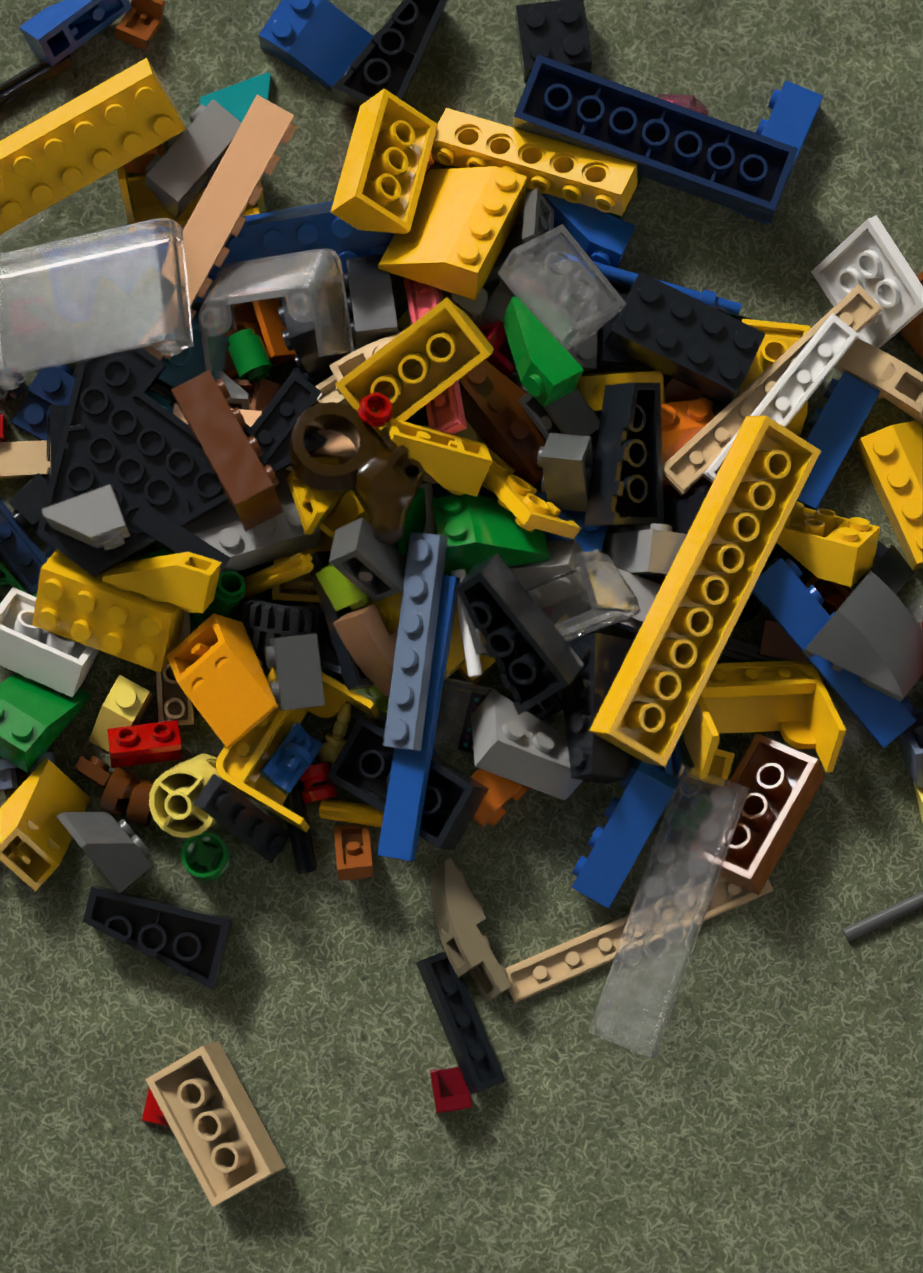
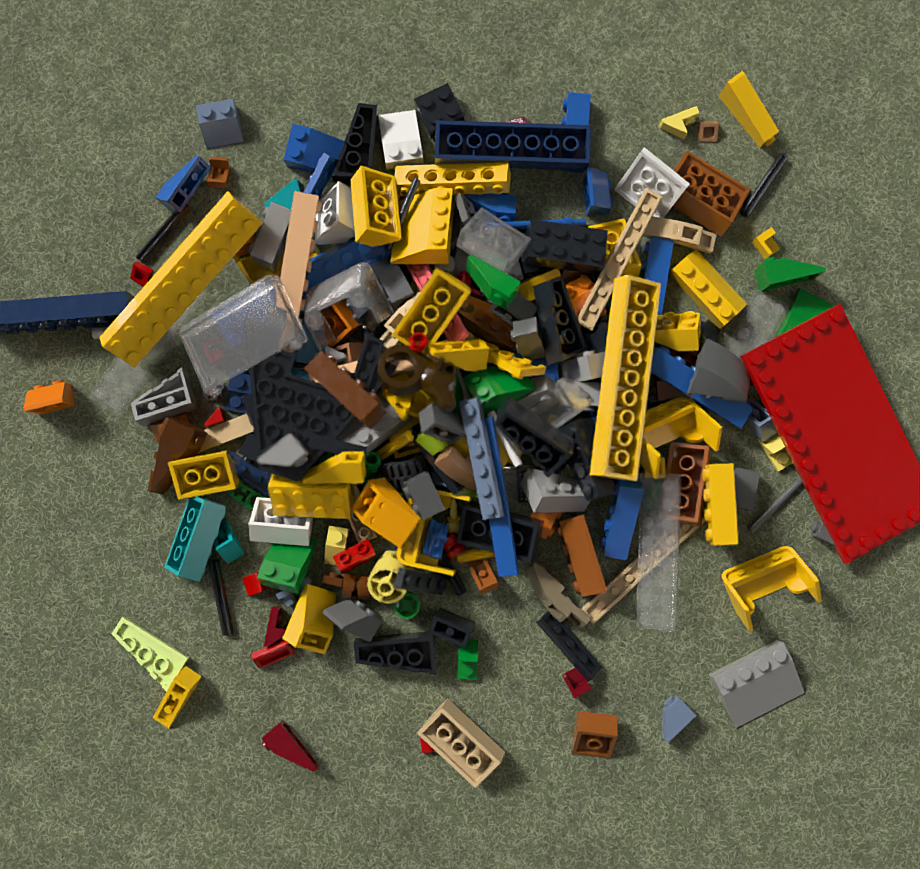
camera: 20 degrees left, 5 degrees up
(249, 355) = (338, 333): green brick -> none
(268, 921) = (452, 627): none -> black brick
(277, 987) = (468, 660): none -> green slope
(313, 82) = (321, 175): none -> blue plate
(313, 158) = (336, 216): none -> white slope
(436, 182) = (405, 206): none -> black bar
(450, 1191) = (594, 734): none -> dark orange slope
(471, 66) = (400, 139): none -> white slope
(533, 874) = (581, 556): none -> dark orange slope
(601, 1208) = (674, 717): none -> sand blue slope
(766, 1203) = (757, 683): none -> light grey slope
(777, 266) = (596, 192): none -> blue slope
(798, 860) = (720, 504): none -> yellow slope
(799, 379) = (631, 252): white tile -> none
(842, 1023) = (766, 575): none -> yellow windscreen
(854, 857) = (745, 488): none -> dark grey brick

